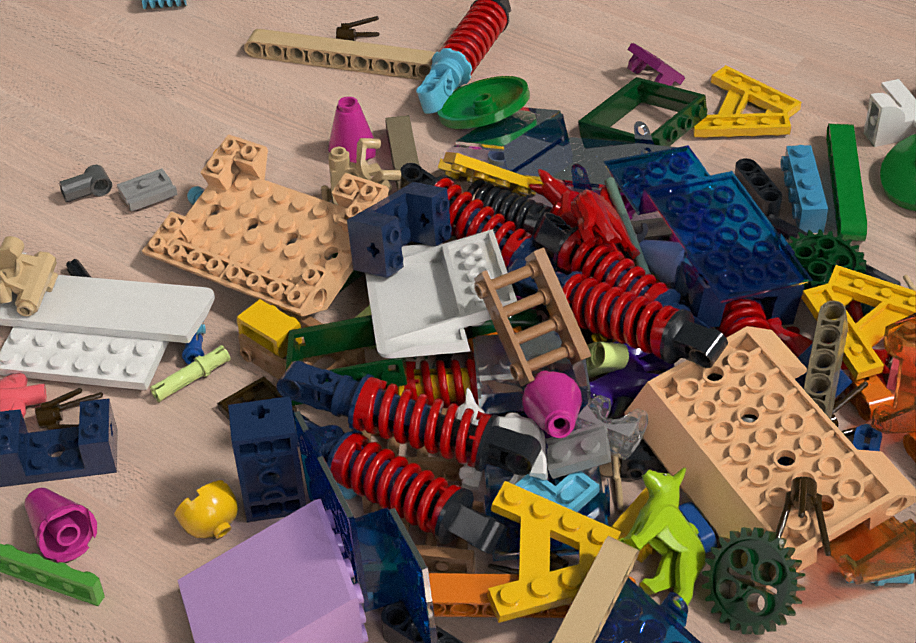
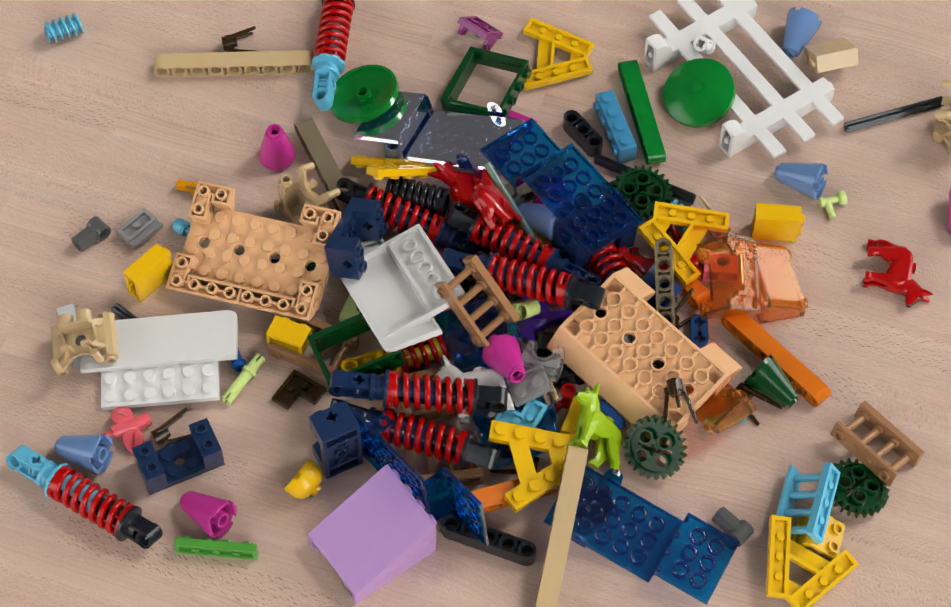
camera: 20 degrees left, 15 degrees up
(126, 228) = (148, 272): none -> yellow brick
(634, 479) = (568, 393): none -> red piece

